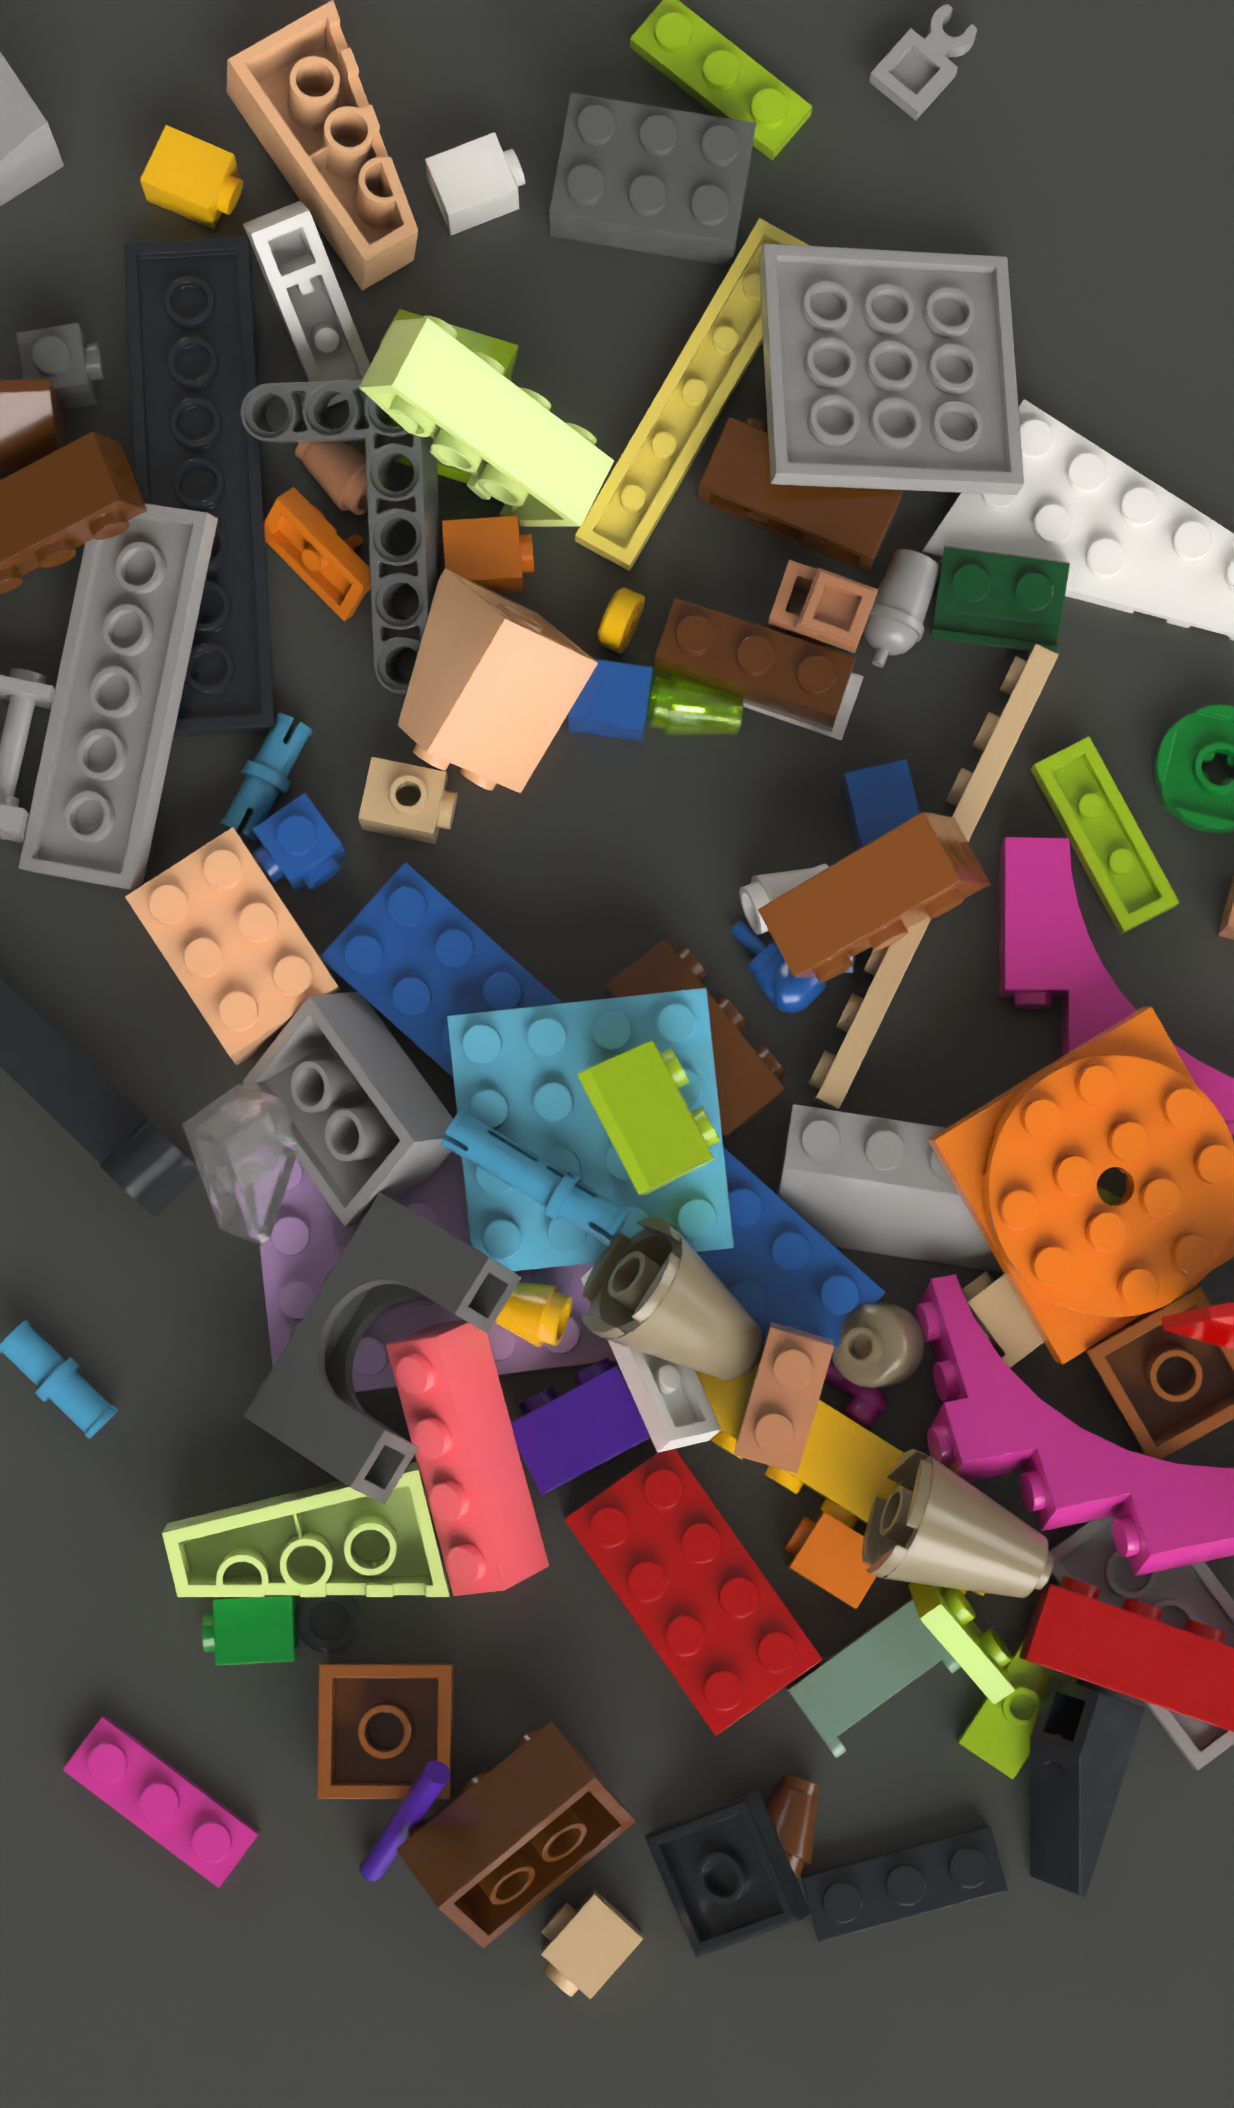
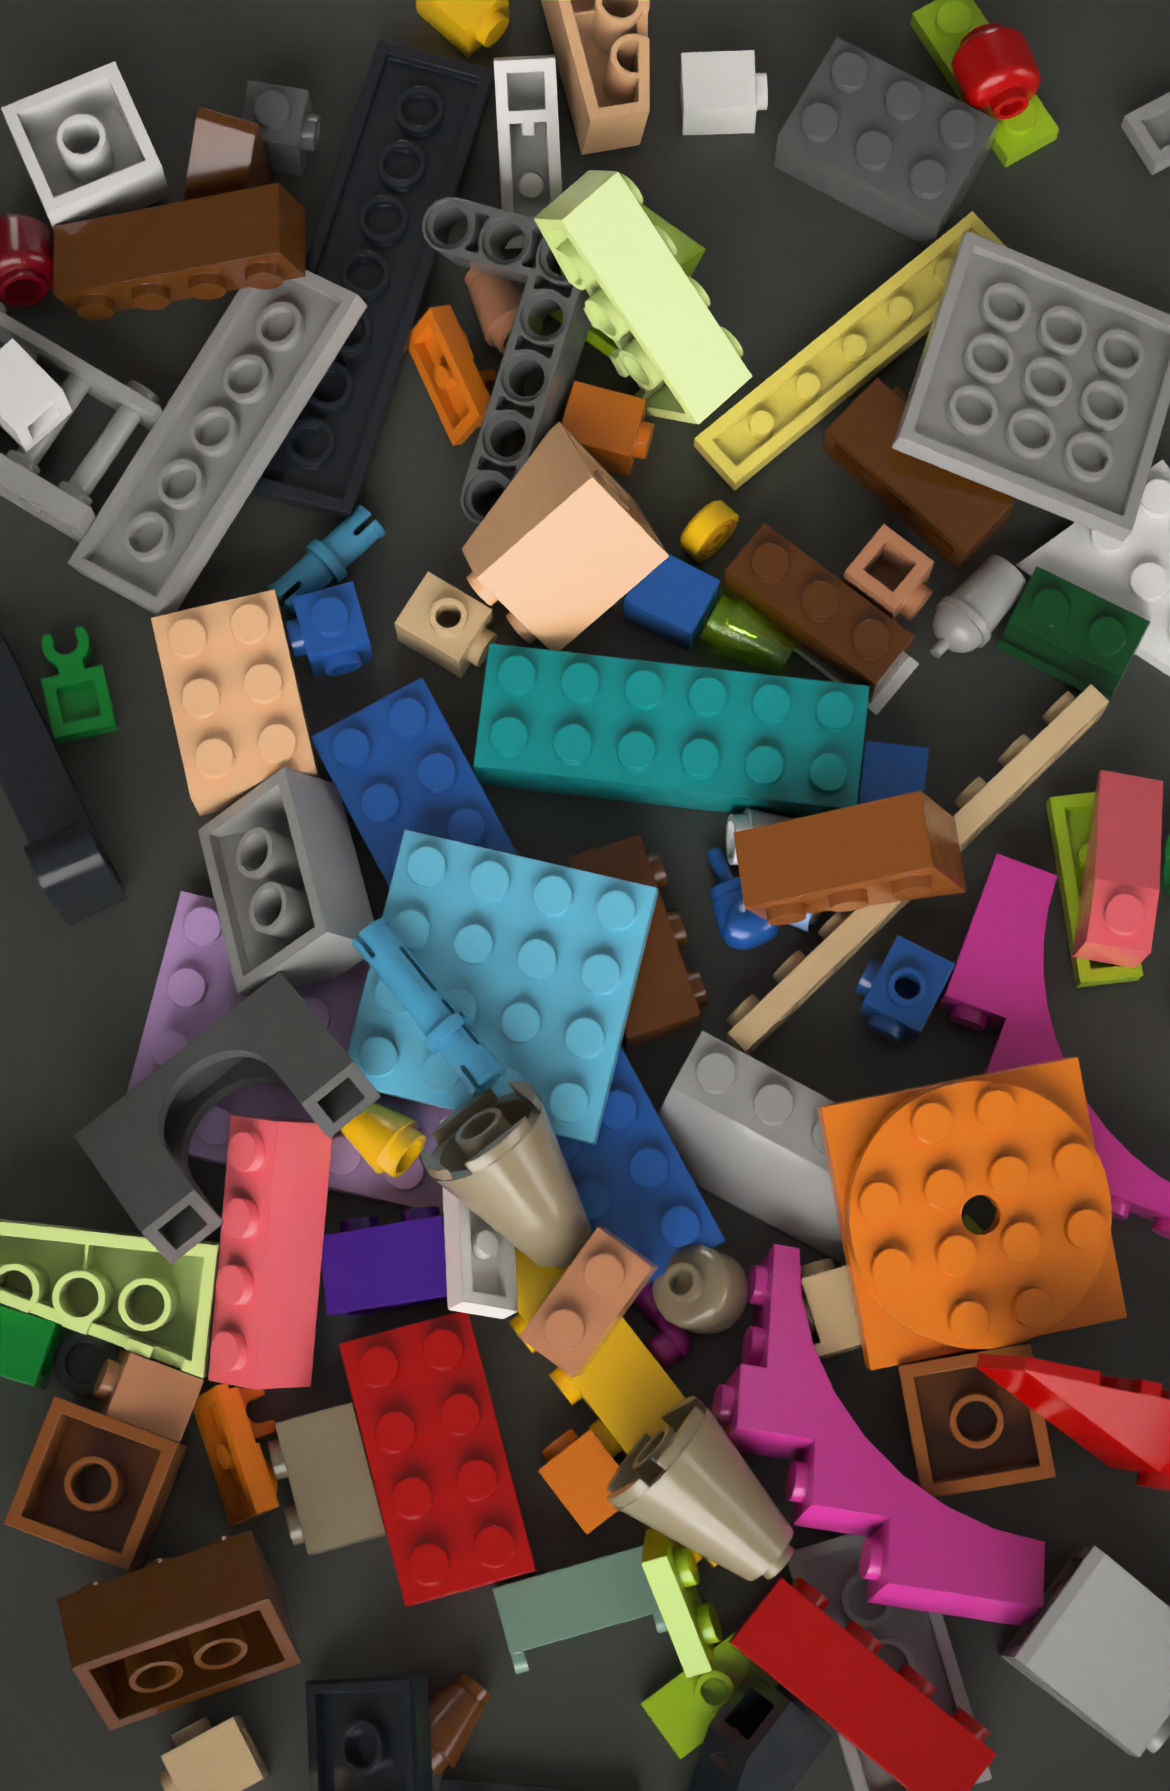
camera: 25 degrees right, 5 degrees down
(79, 993) = (79, 696): none -> green plate
(244, 1159) = (168, 897): clear slope -> none
(400, 1630) = (146, 1394): none -> nougat brick
(404, 1819) = (78, 1574): dark purple bar -> none
(505, 1659) = (237, 1462): none -> orange plate
(598, 1645) = (328, 1480): none -> dark tan brick
(649, 1117) = (554, 984): lime slope -> none
(659, 830) = (668, 733): none -> teal brick
(735, 73) = (996, 70): none -> red head
(836, 610) = (910, 584): nougat tile -> none
(962, 996) = (902, 990): none -> blue brick
(1126, 812) = (1121, 871): none -> coral slope

